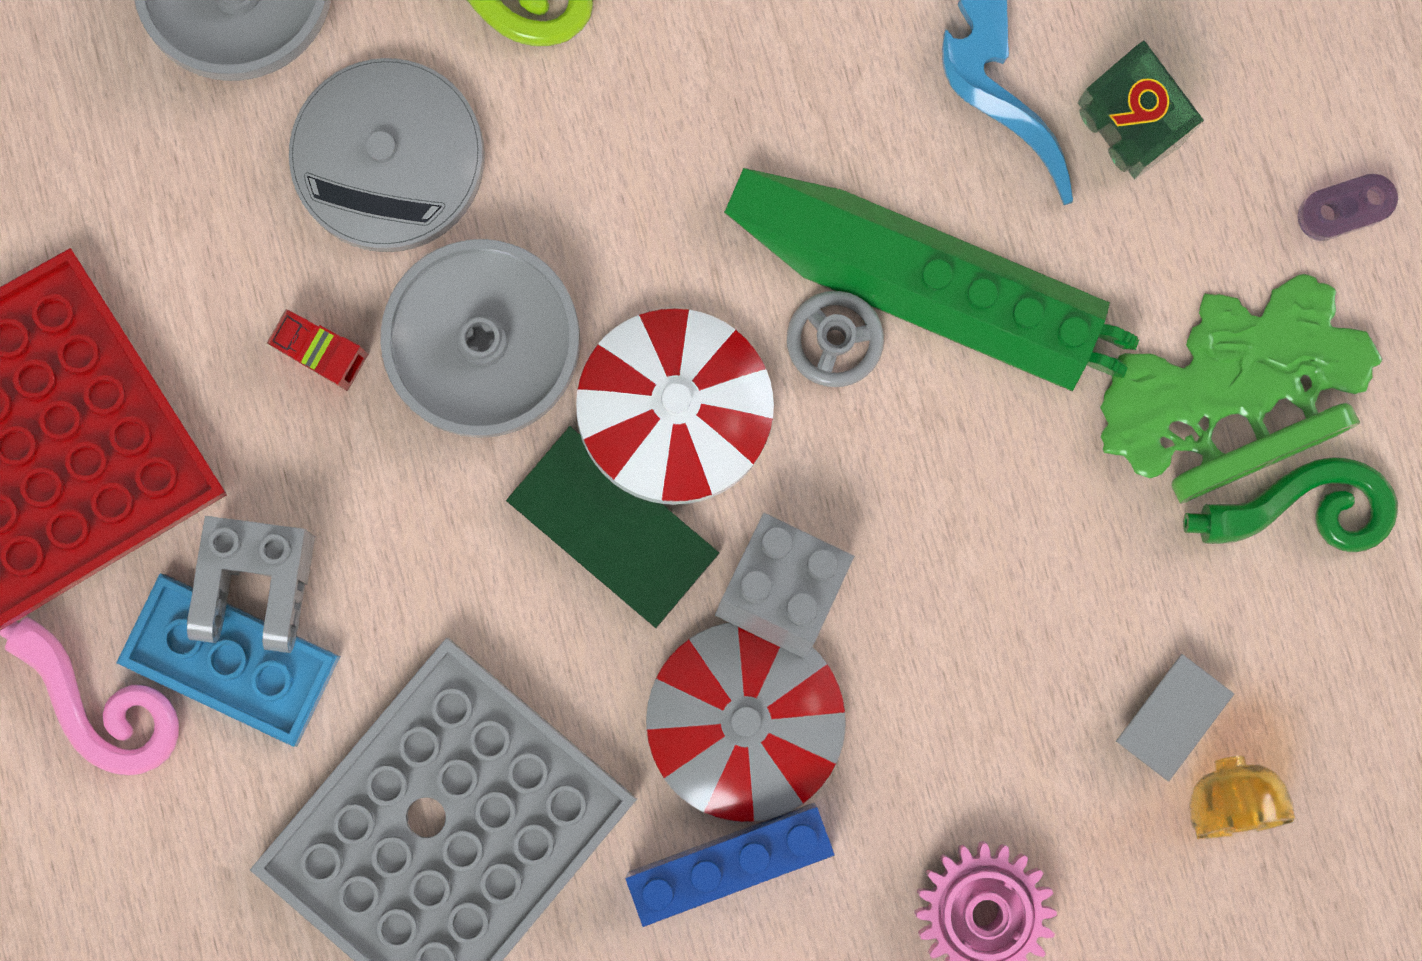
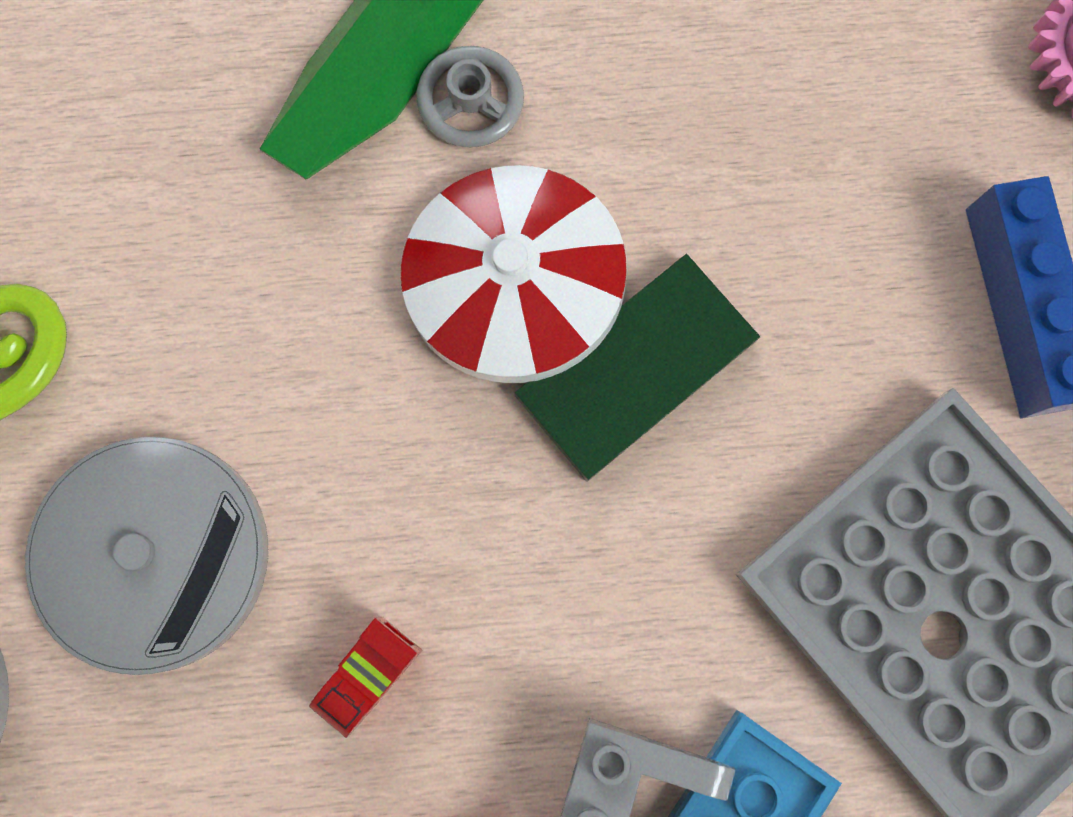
camera: 90 degrees left, 5 degrees down
(480, 338) = (393, 473): light grey dish -> none
(744, 724) = (873, 262): dish -> none
(784, 585) = (740, 181): light grey brick -> none

